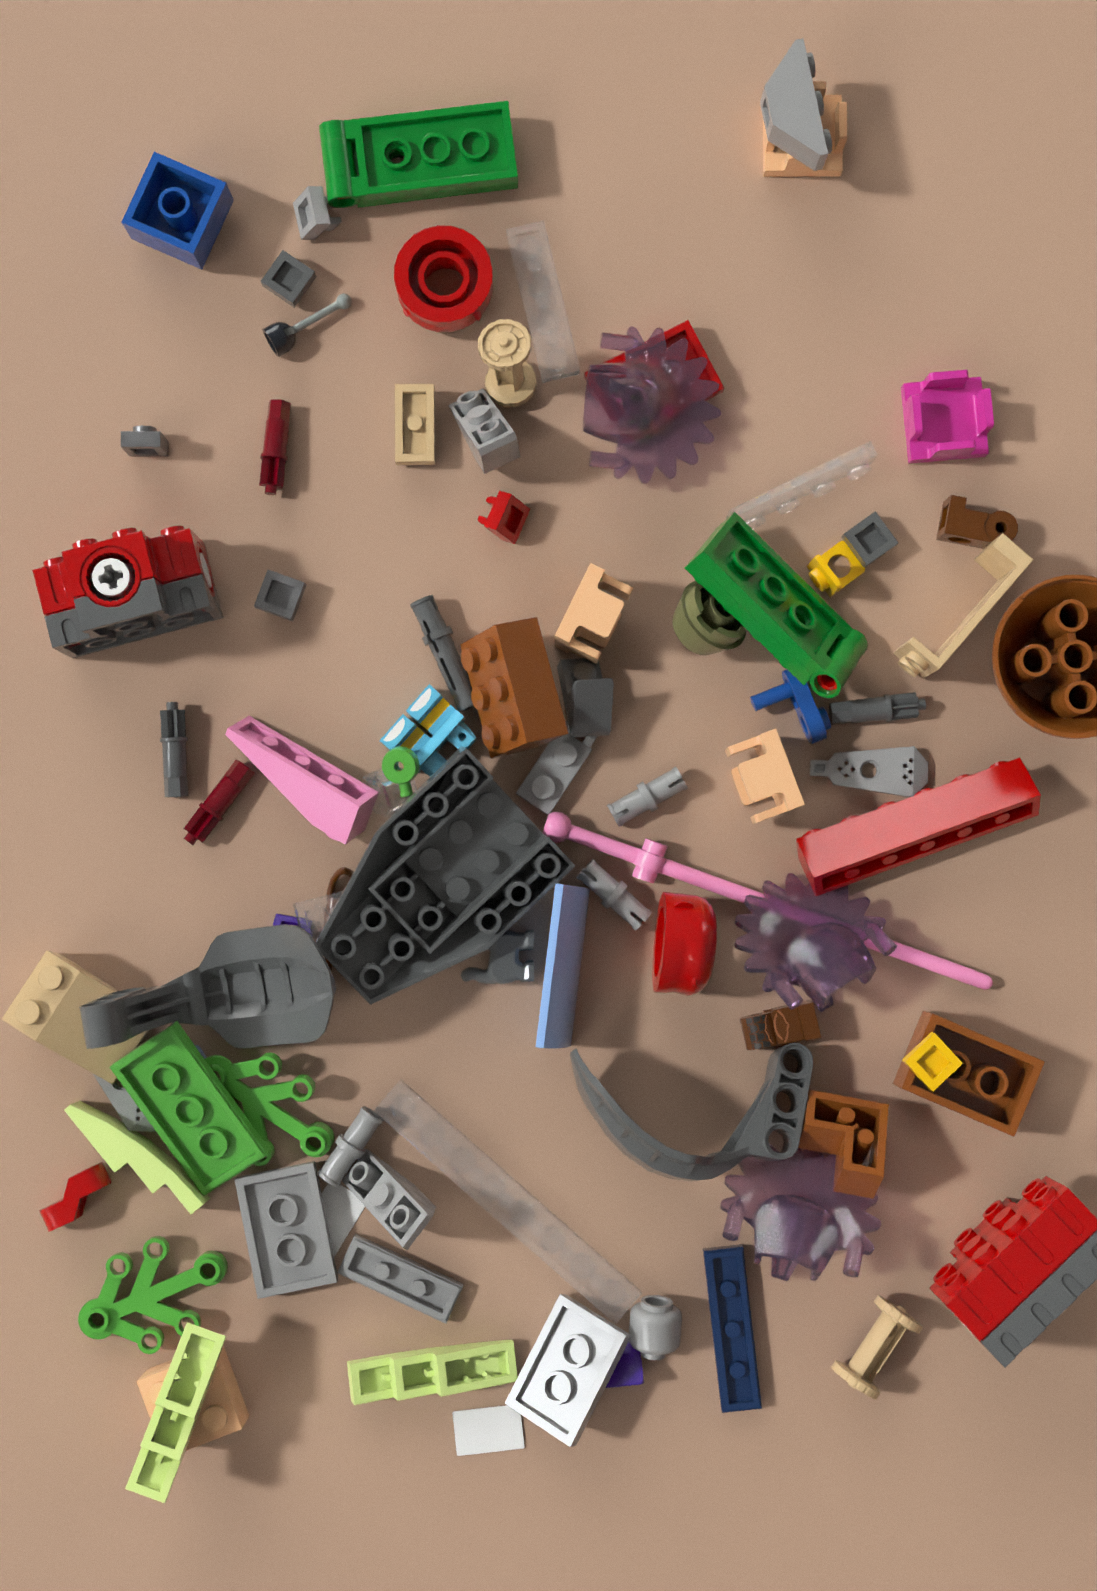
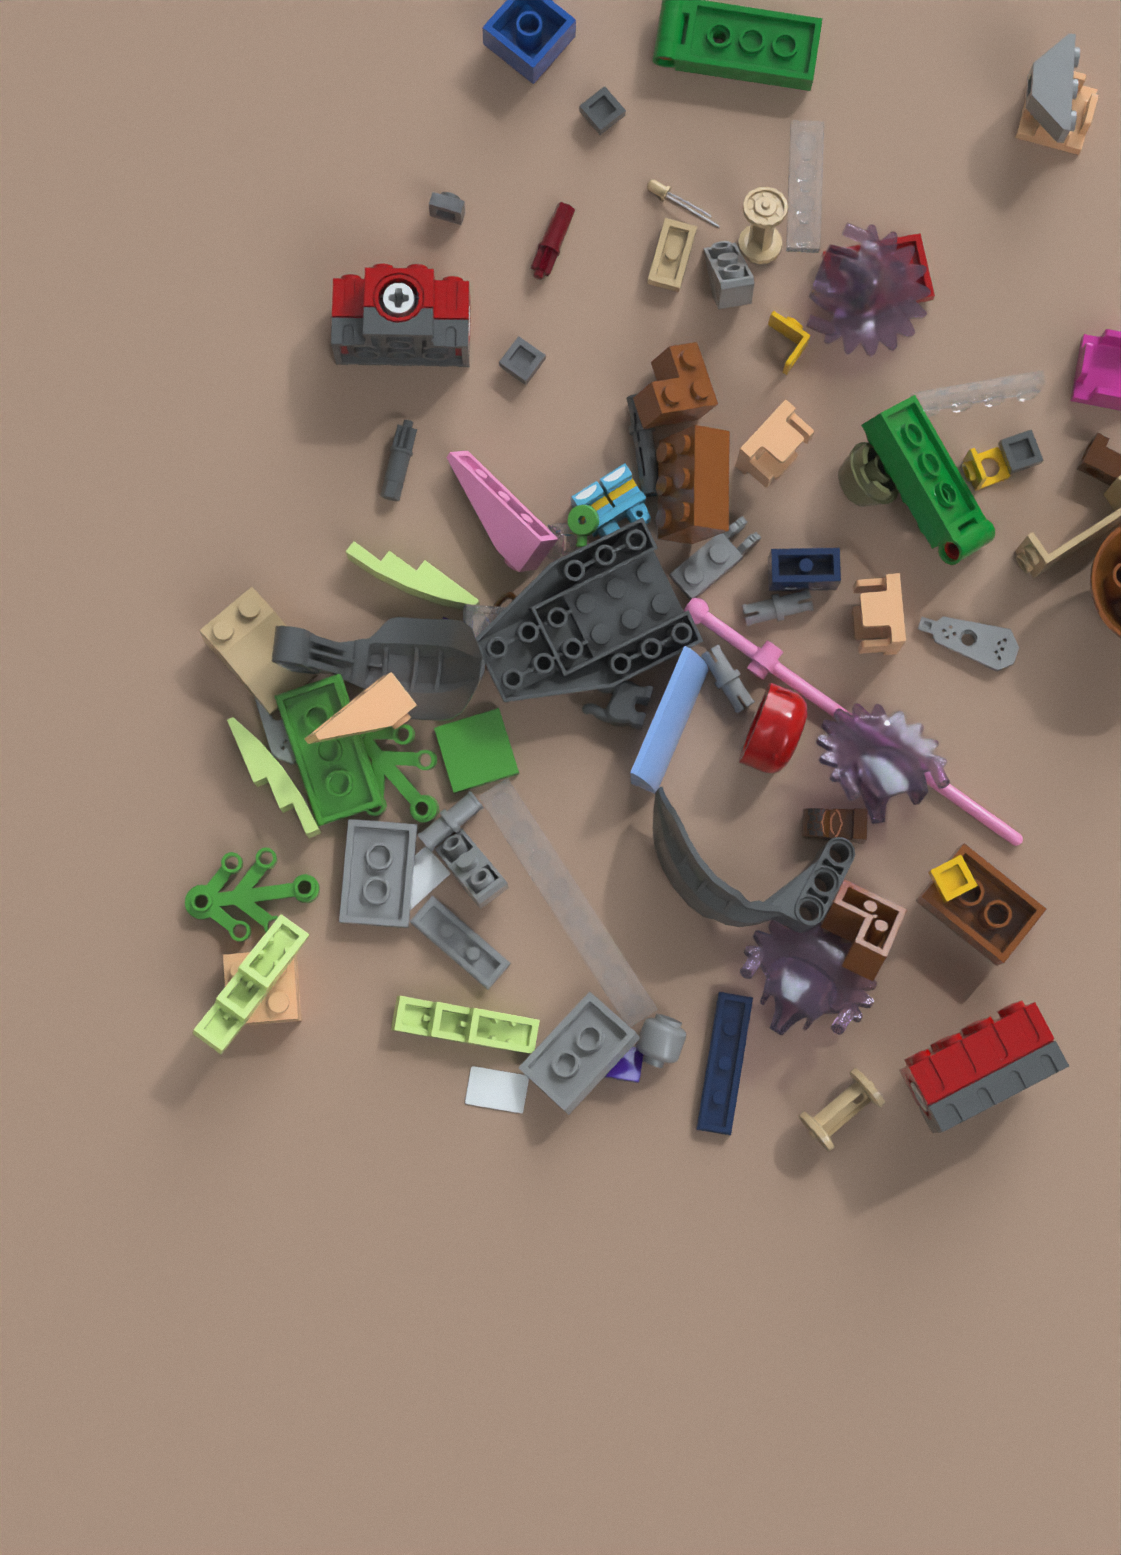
camera: 15 degrees right, 5 degrees down
(75, 1196) = (219, 789): red piece -> none
(218, 802) = (422, 512): dark red piece -> none
(223, 1056) = (374, 709): none -> light nougat slope
(241, 883) = (423, 583): none -> yellowish green slope
(283, 336) = (583, 154): hinge -> none
(312, 213) = (637, 64): light grey tile -> none
(356, 1057) = (476, 750): none -> bright green tile
(385, 353) = (664, 191): none -> piece
(443, 249) = (734, 121): red piece -> none
(470, 580) = (681, 388): none -> dark orange brick
(505, 517) = (725, 349): red tile -> none
(575, 473) = (792, 330): none -> yellow bracket
(586, 697) = (750, 511): dark grey slope -> none
(665, 747) = (804, 569): none -> dark blue brick
(812, 719) = (932, 583): blue piece -> none
(877, 709) = (987, 590): dark grey piece -> none
(918, 826) = (995, 693): brick -> none

